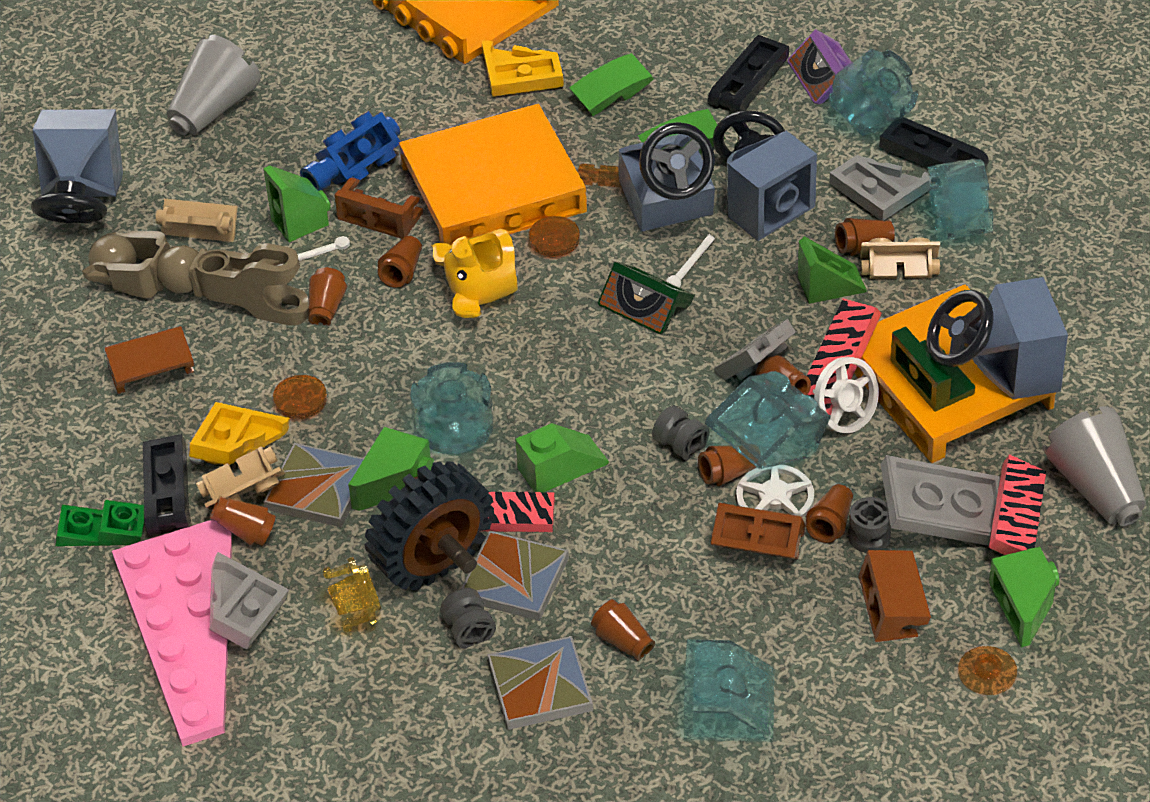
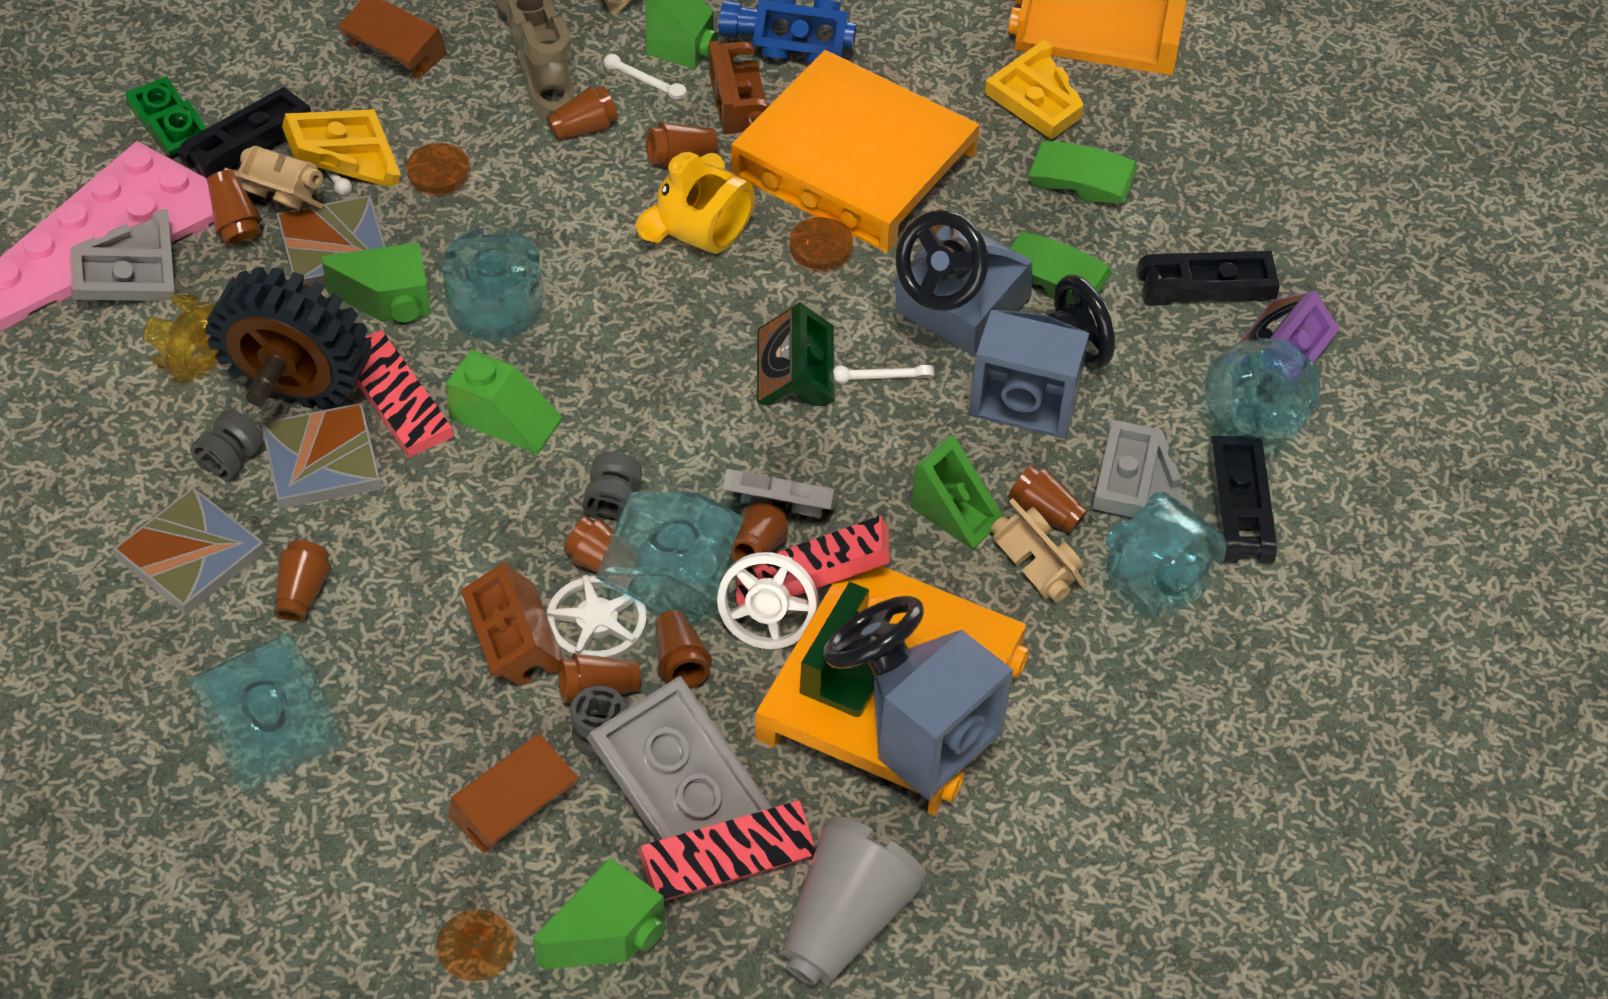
camera: 50 degrees right, 5 degrees up
(840, 461) = (681, 650): none -> dark orange cone

